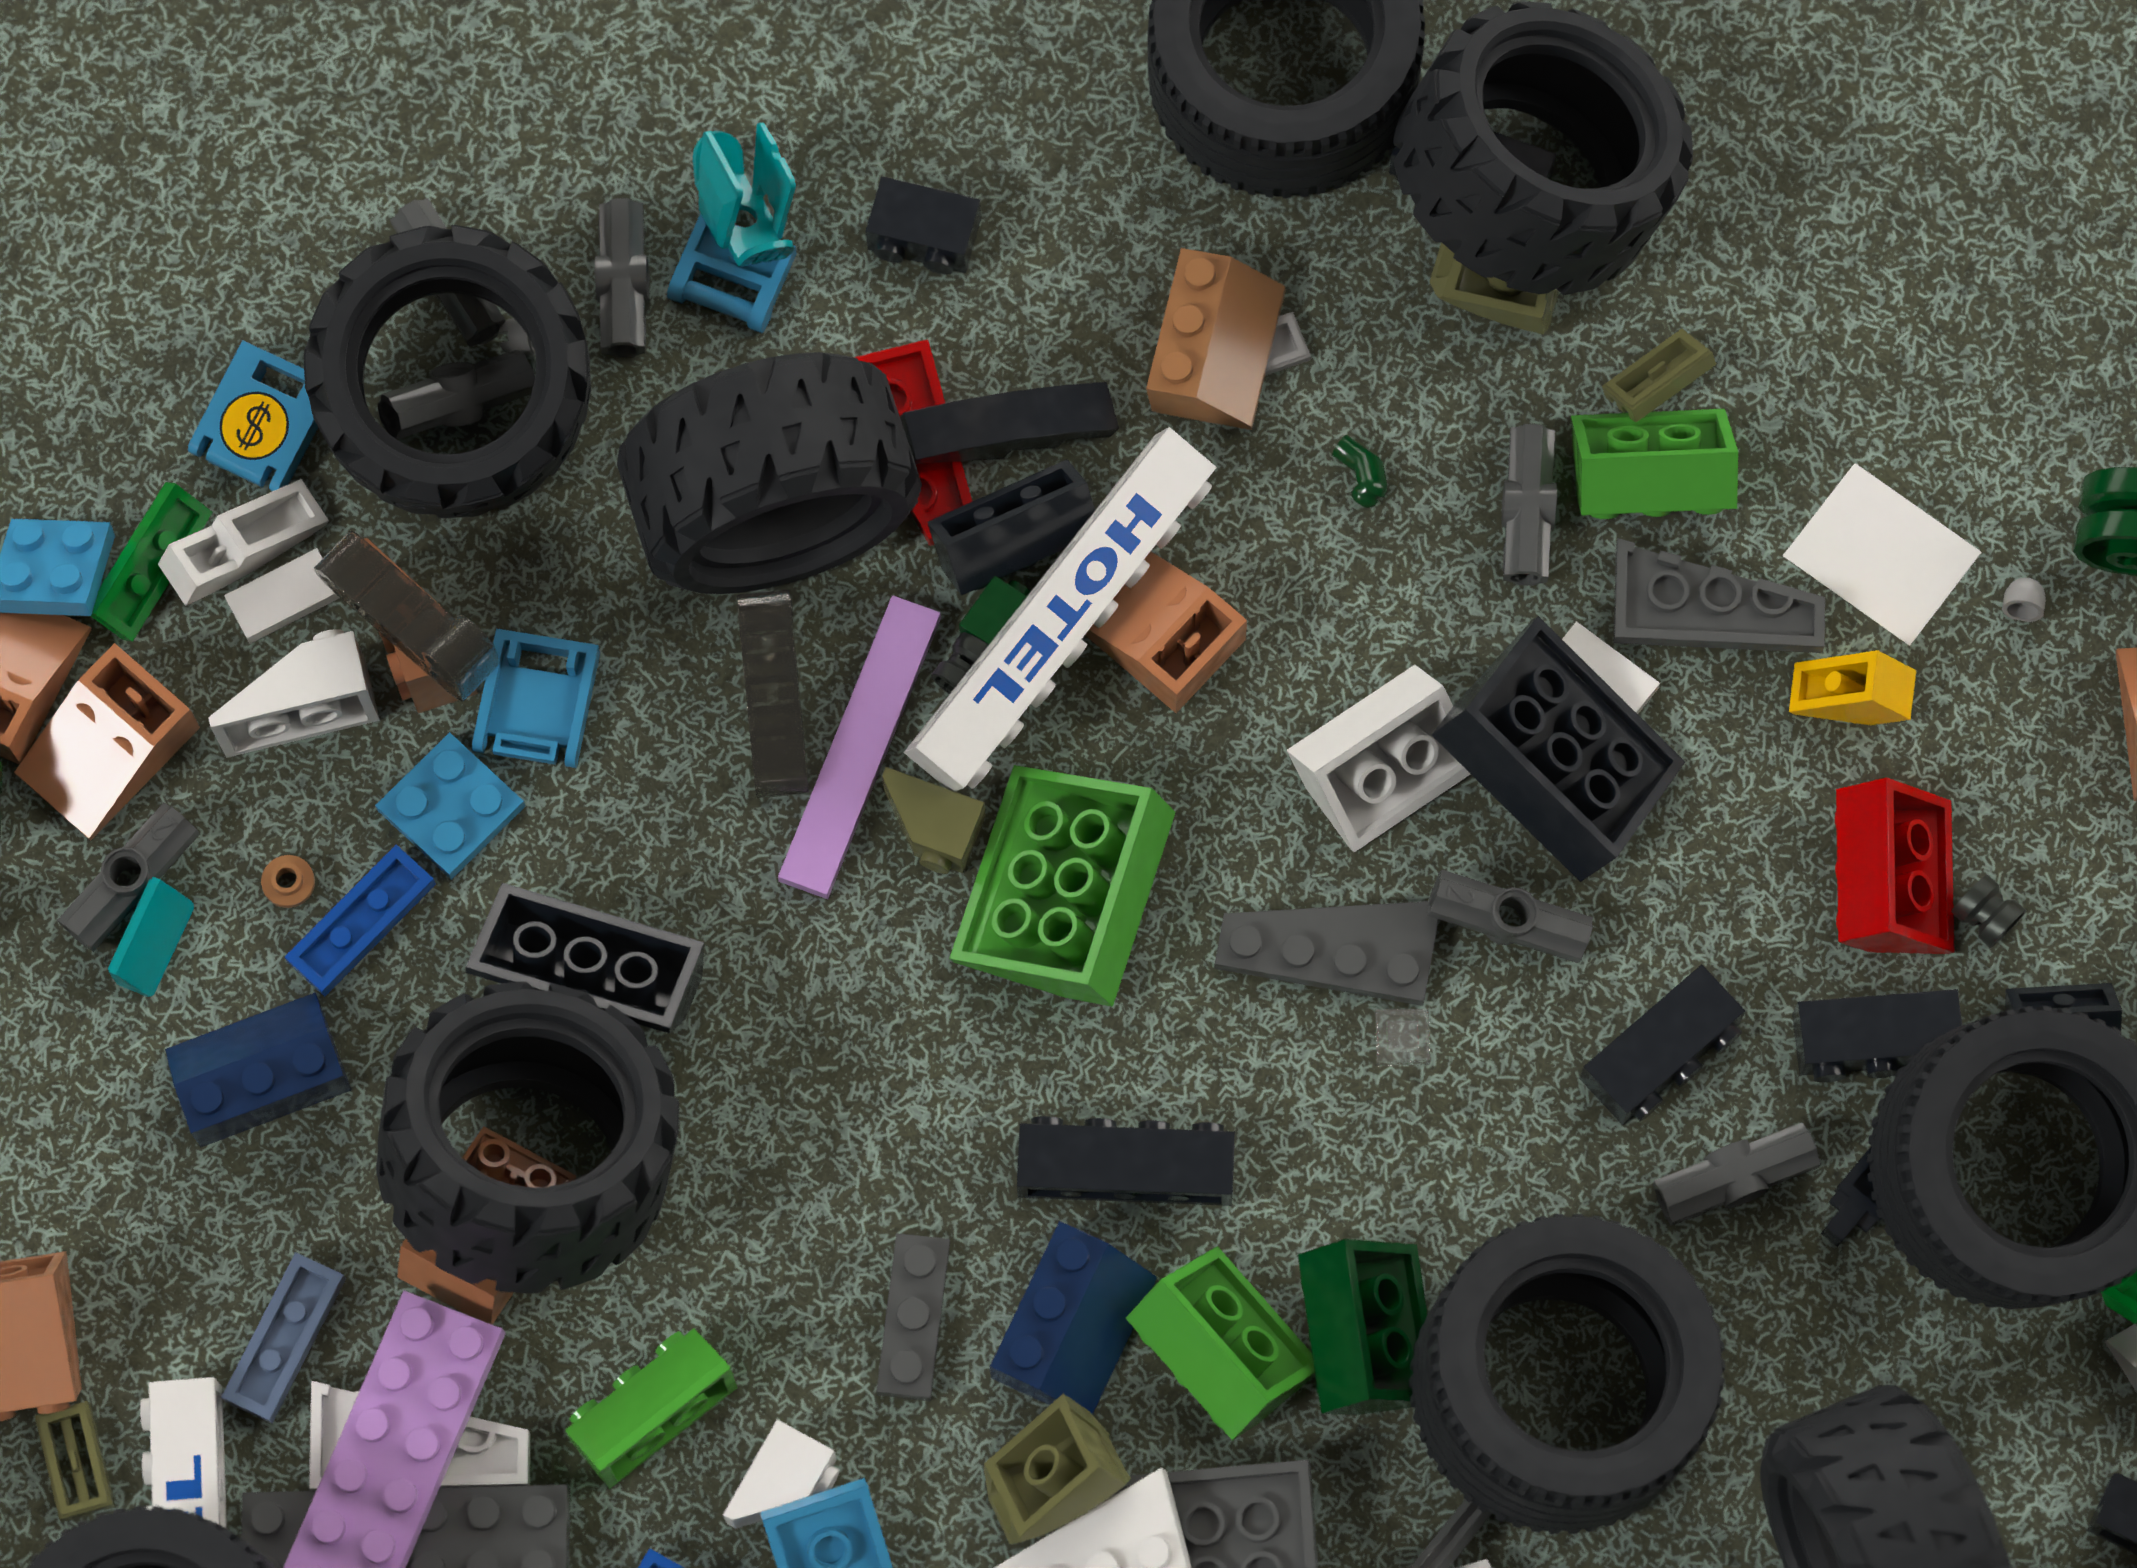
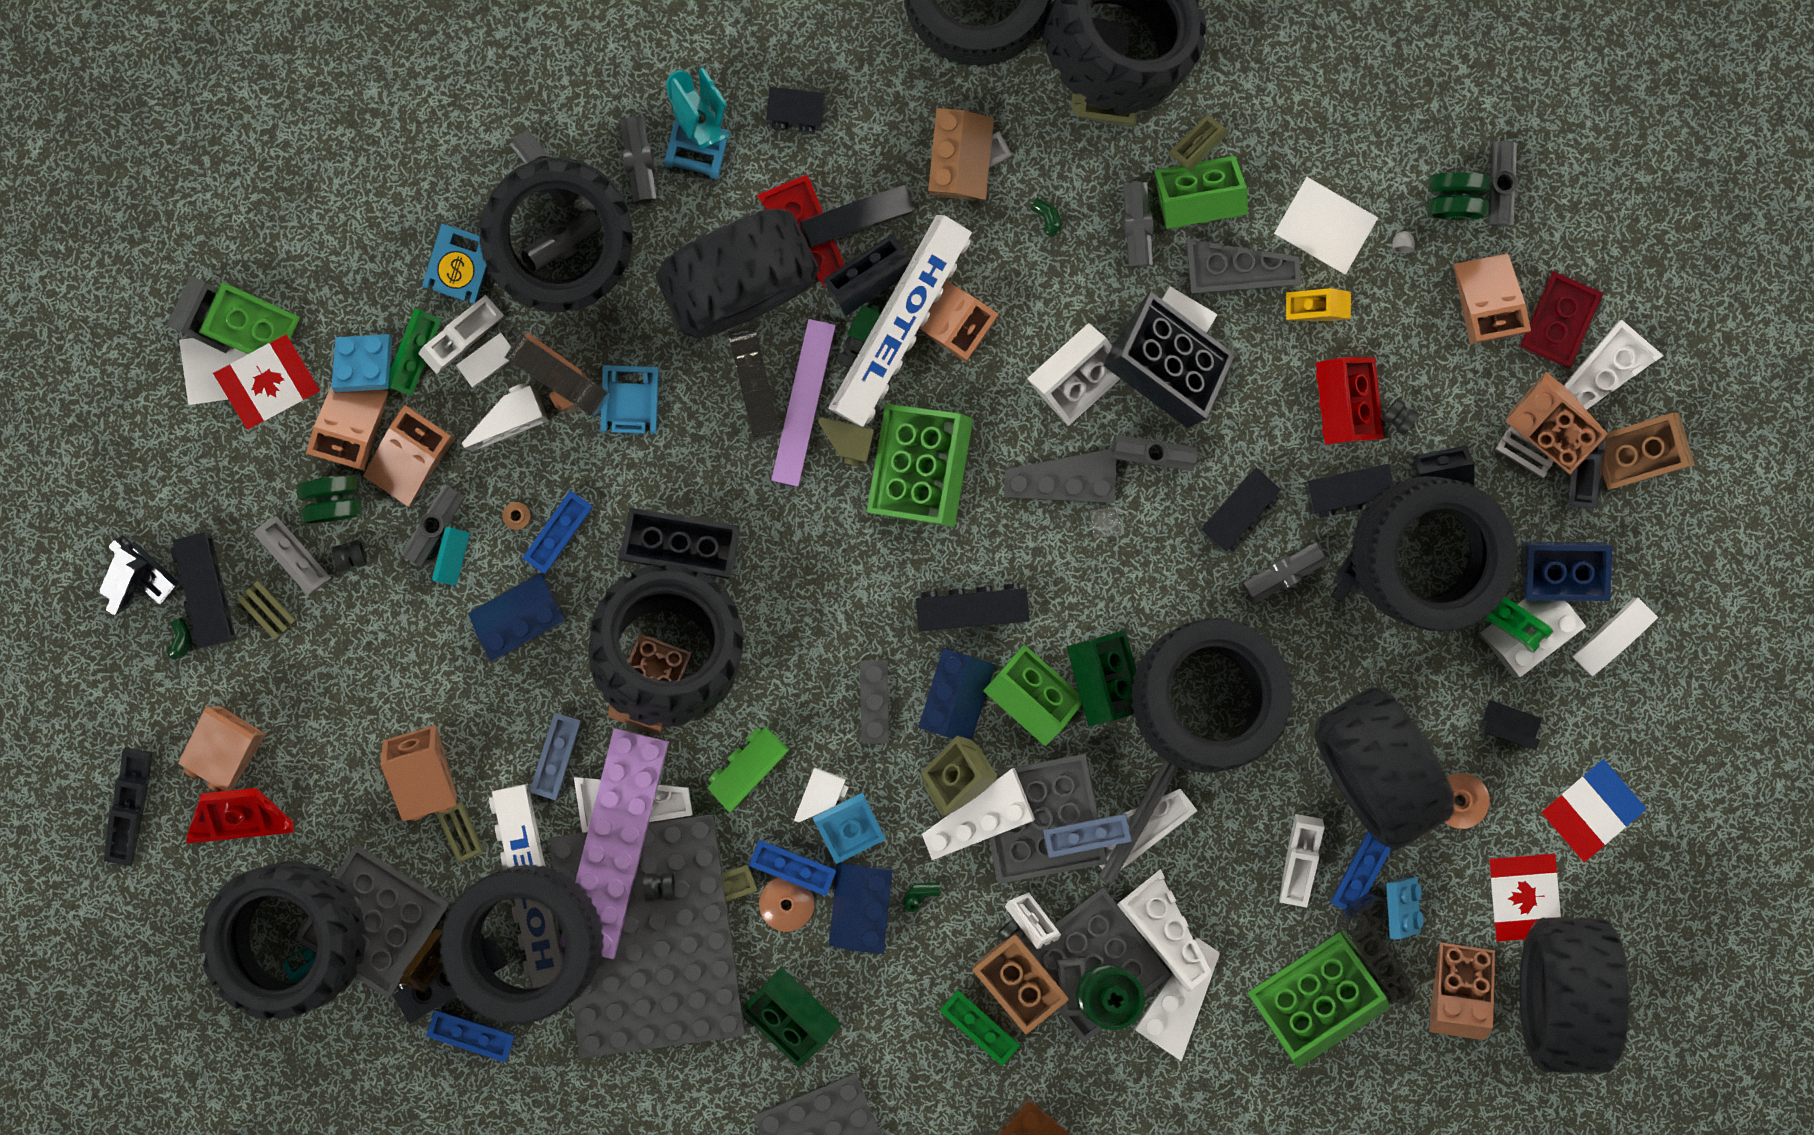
camera: 15 degrees left, 15 degrees up
(450, 805) = (594, 463): dark azure plate -> none

